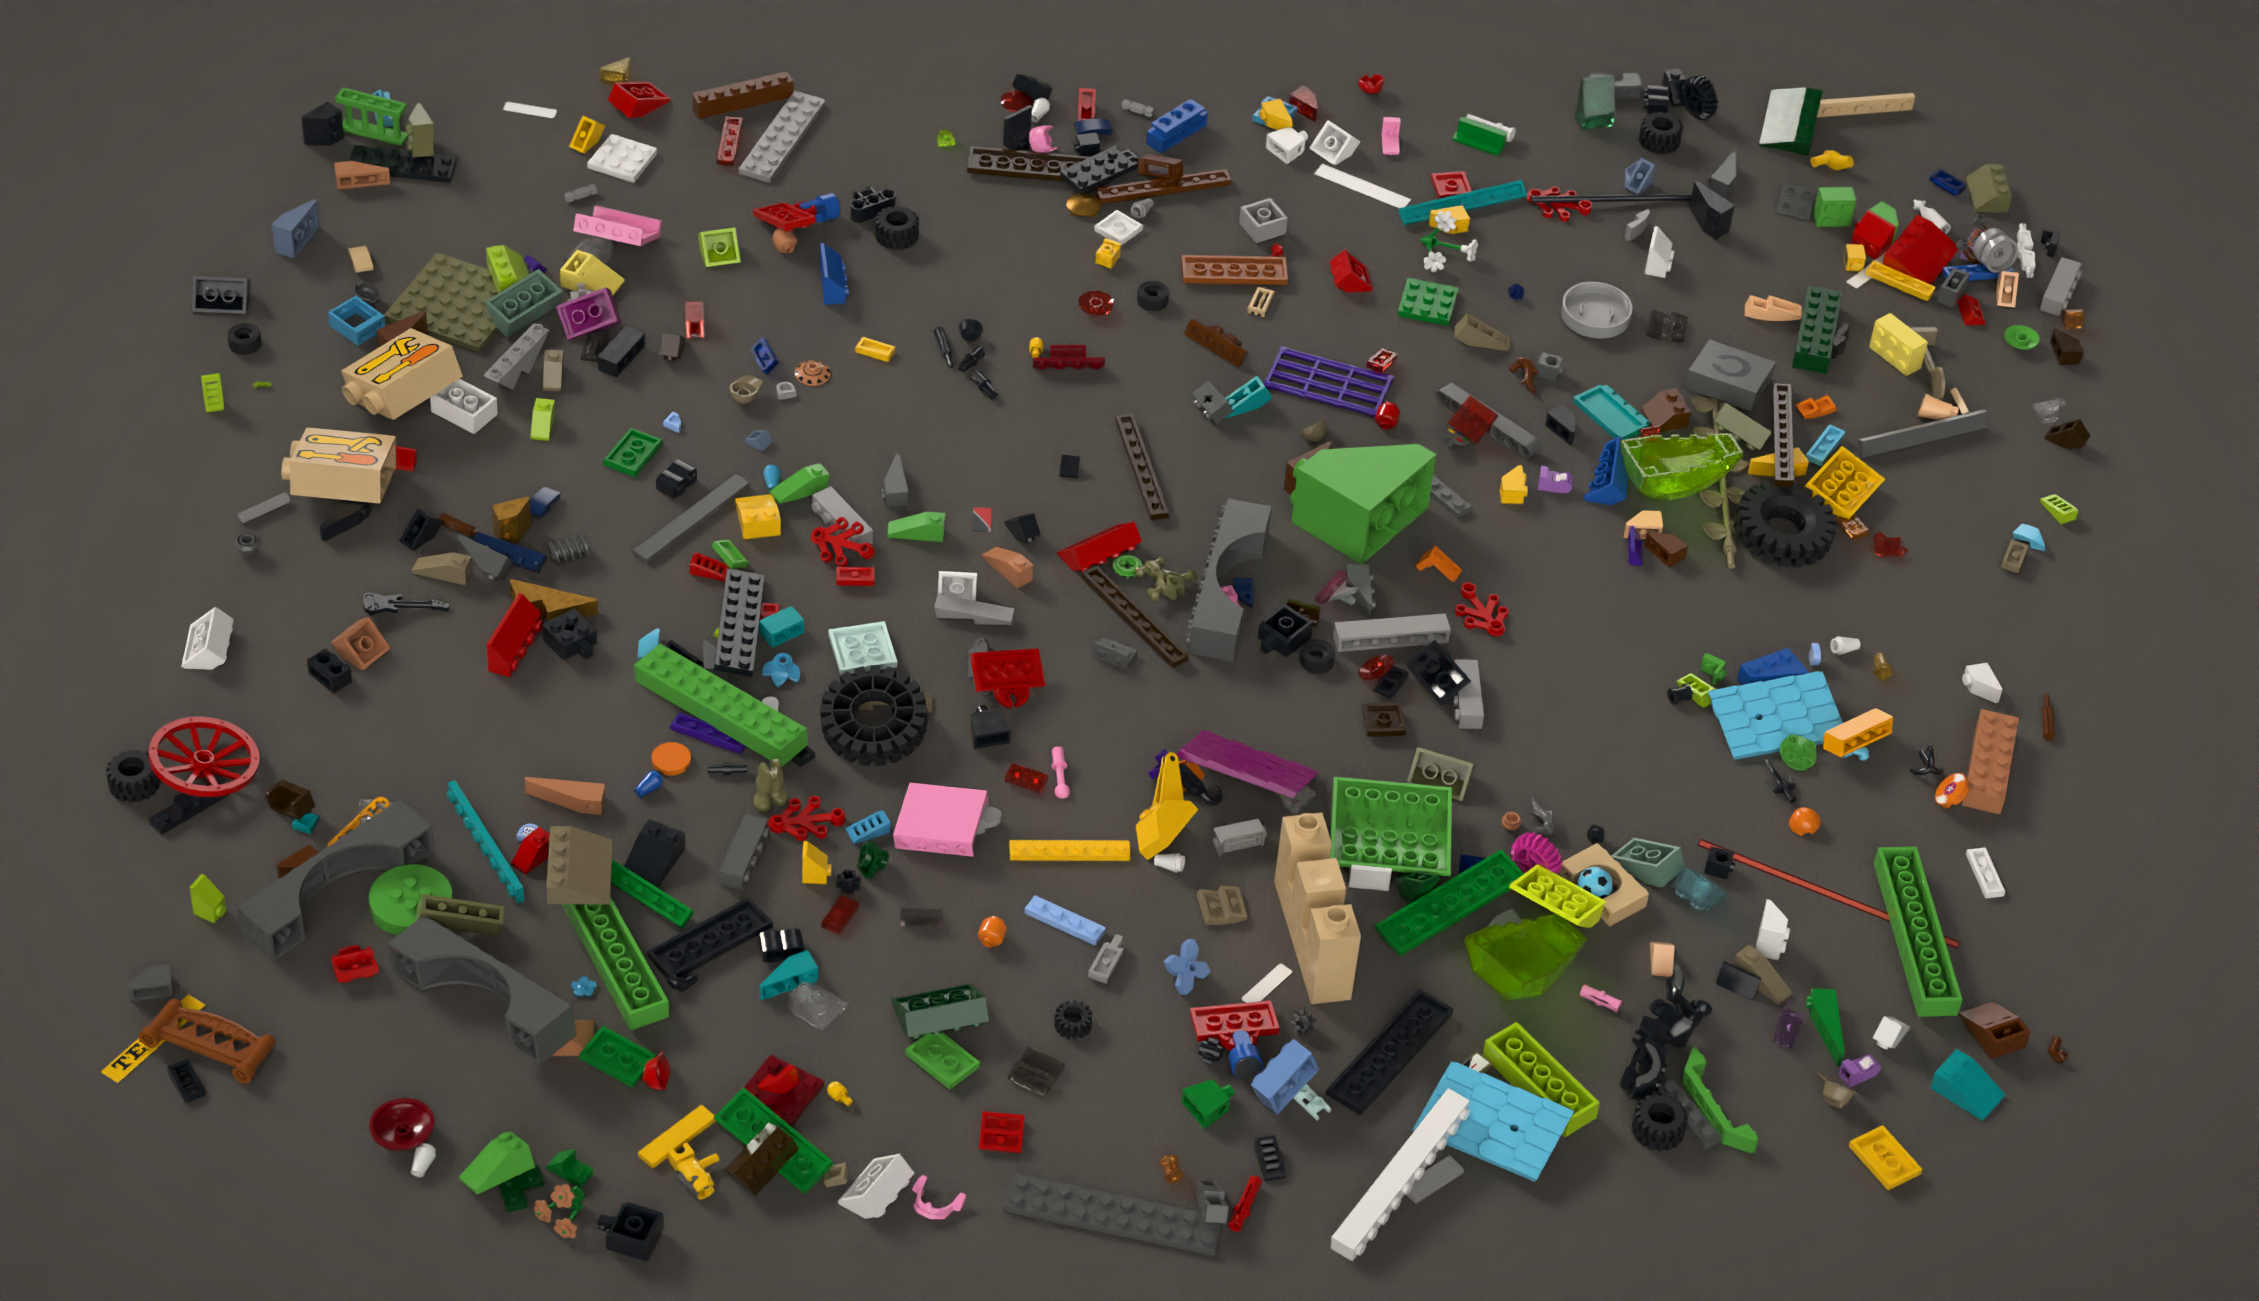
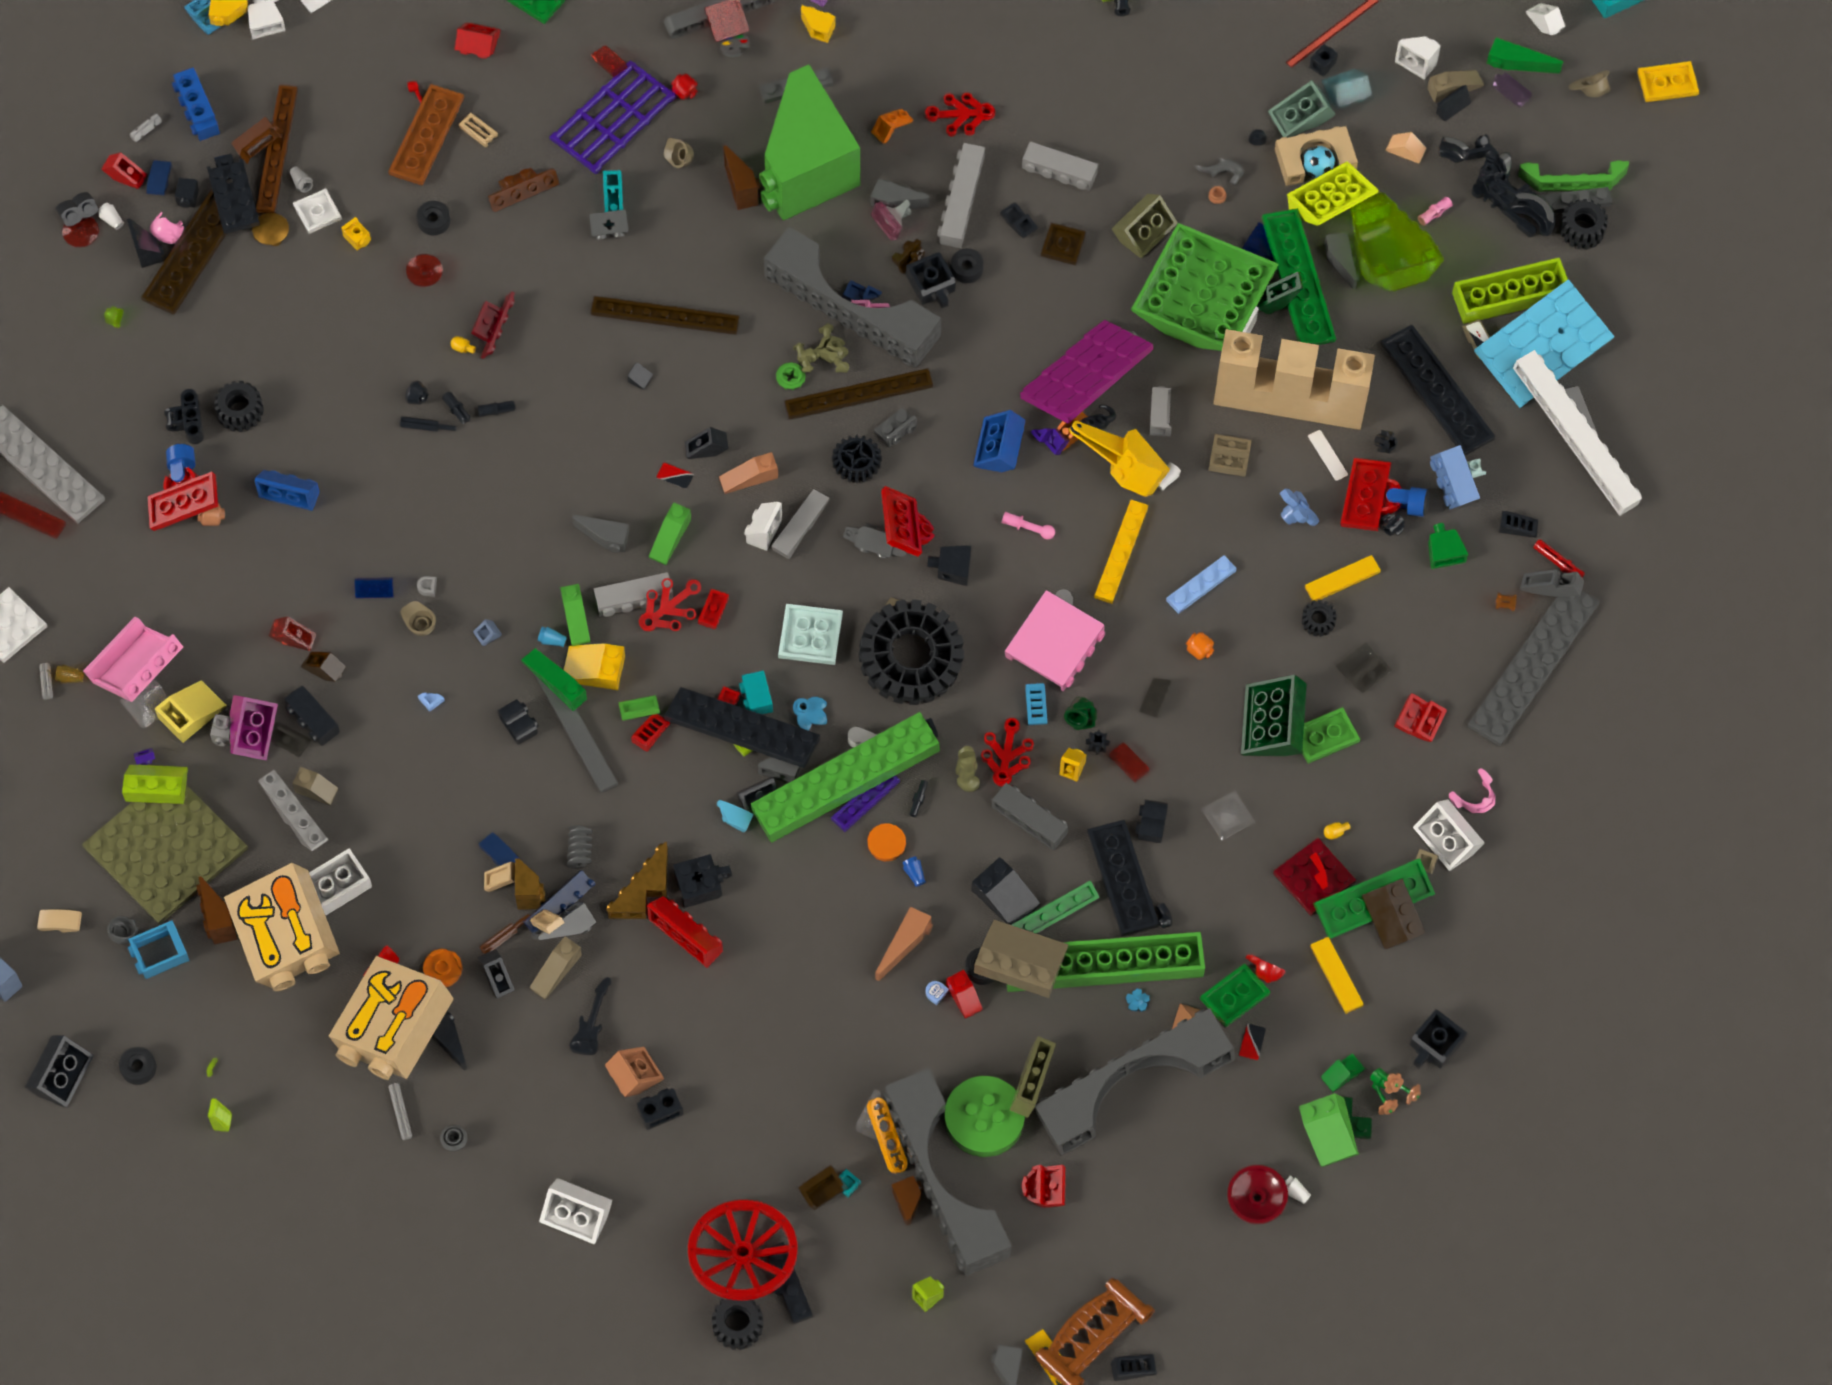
camera: 65 degrees left, 20 degrees up
(412, 497) = (443, 965): none -> orange tile
(479, 538) = (547, 921): none -> tan tile
(487, 844) = (929, 1032): teal plate -> none
(523, 302) = (209, 782): sand green slope -> none
(542, 419) = (383, 817): lime slope -> none
(576, 1089) = (1252, 1041): none -> sticker
(590, 199) = (68, 674): none -> clear yellow cone
(632, 452) = (458, 750): green tile -> none
(693, 1172) = (1382, 974): yellow piece -> none
(719, 247) = (192, 577): lime slope -> none
(726, 489) = (556, 679): none -> green slope
(790, 975) = (1188, 822): teal slope -> none
(812, 373) = (410, 561): nougat dish -> none
(875, 349) = (401, 486): yellow tile -> none
(1026, 778) = (1025, 554): clear red plate -> none
(1064, 631) = (864, 465): none -> black gear
(1101, 546) = (758, 389): red slope -> none
(1107, 960) = (1261, 567): light grey hinge -> none
(1130, 1030) = (1342, 578): none -> yellow tile
(1138, 729) = (999, 442): none -> blue slope
(1263, 220) = (372, 82): light grey brick -> none
(1376, 667) = (994, 222): clear red dish -> none
(1437, 673) = (1035, 178): black slope -> none
(1534, 849) = (1273, 191): dark pink gear -> none
(1859, 1070) = (1575, 59): medium lavender leg -> none

